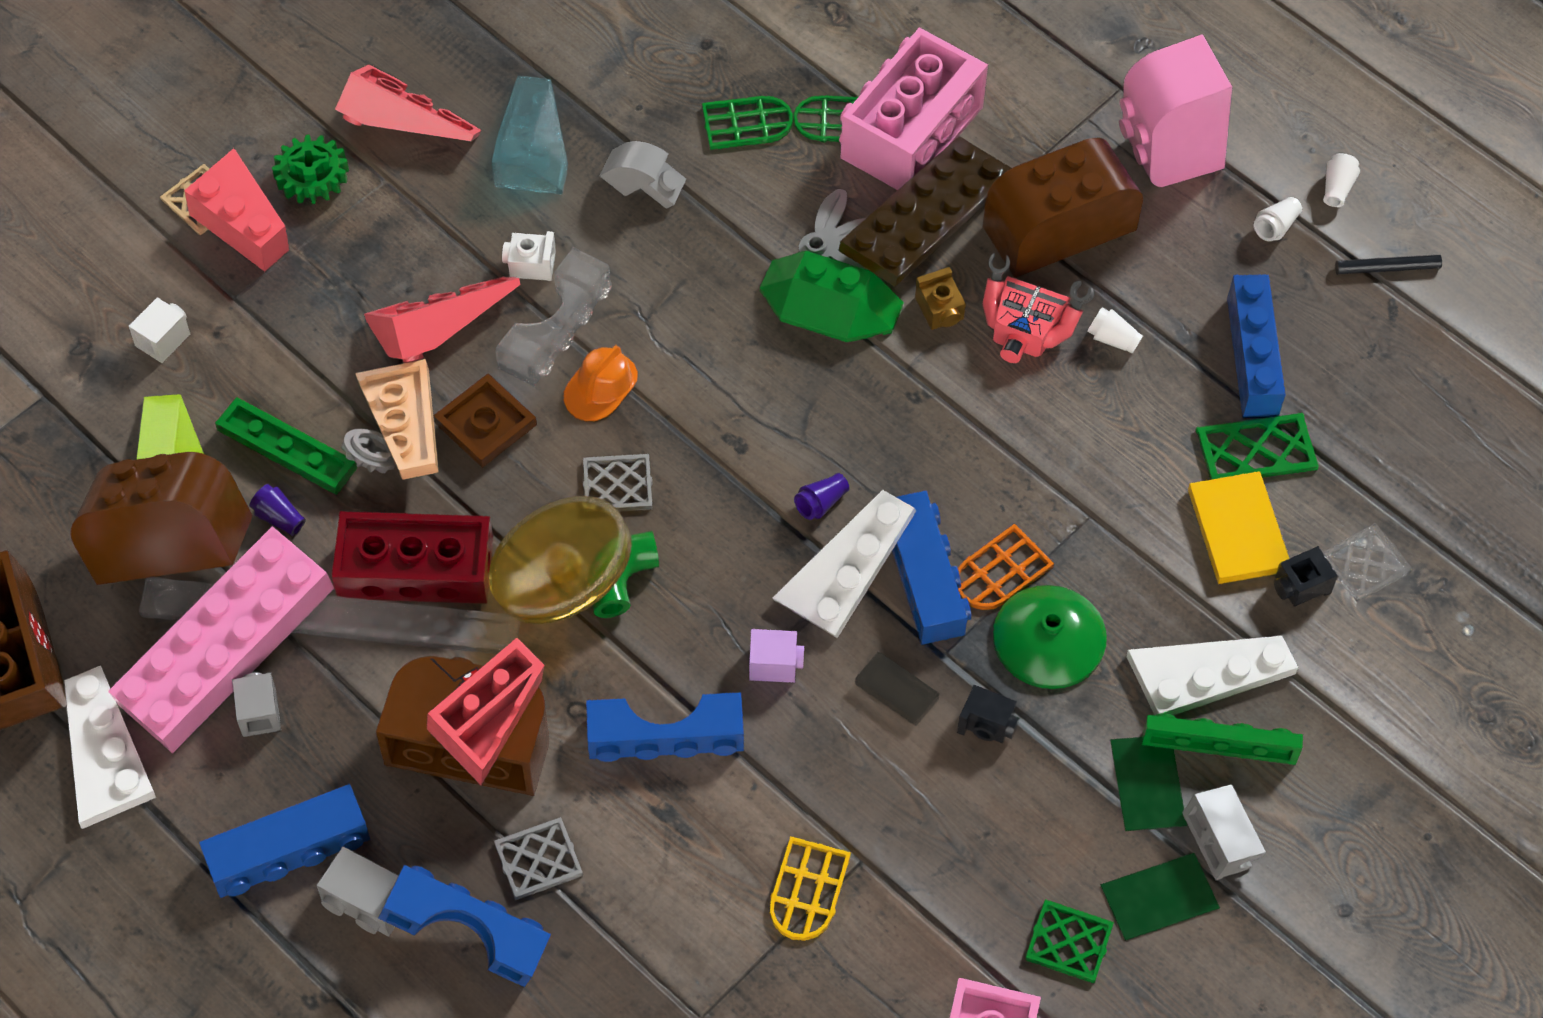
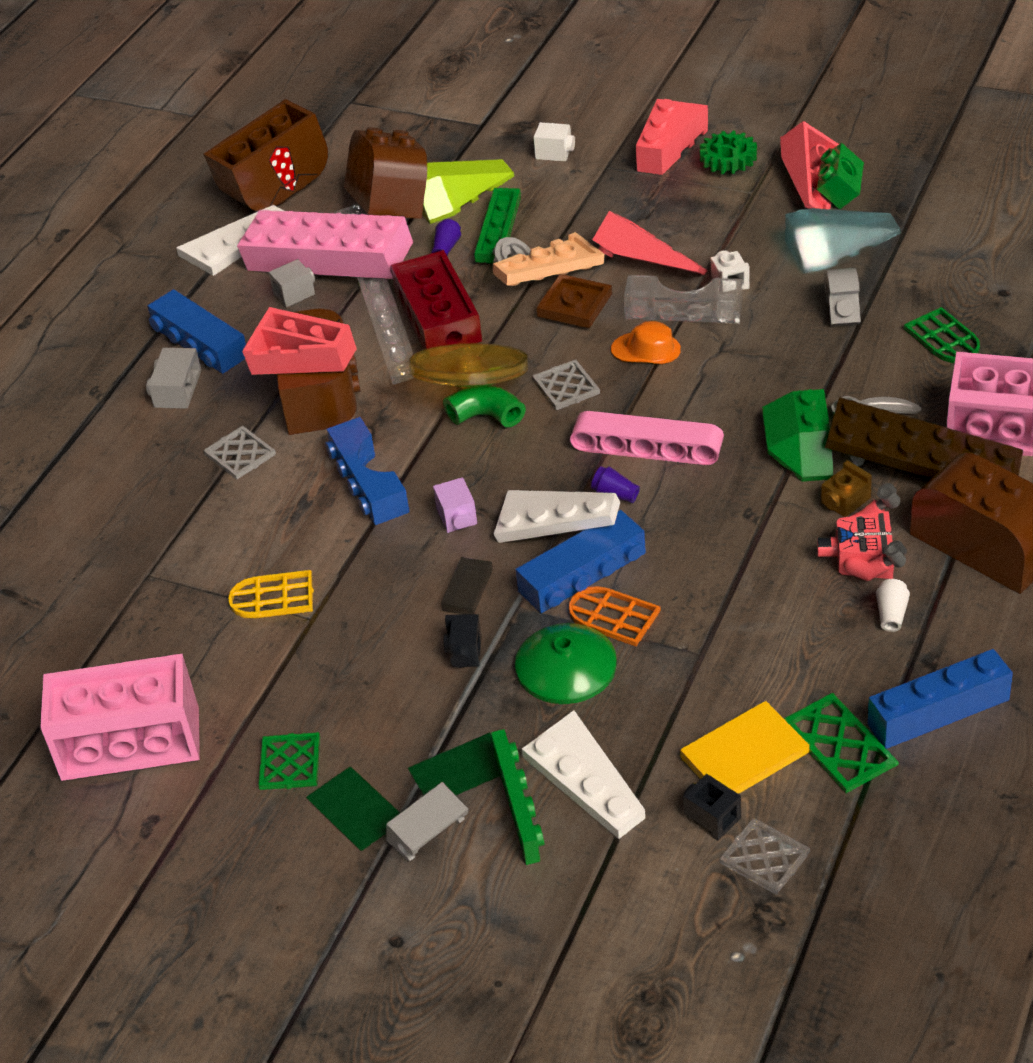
camera: 75 degrees right, 15 degrees down
(441, 87) = (840, 175): none -> green brick
(510, 943) = (158, 452): blue arch -> none
(763, 439) = (647, 437): none -> bright pink beam

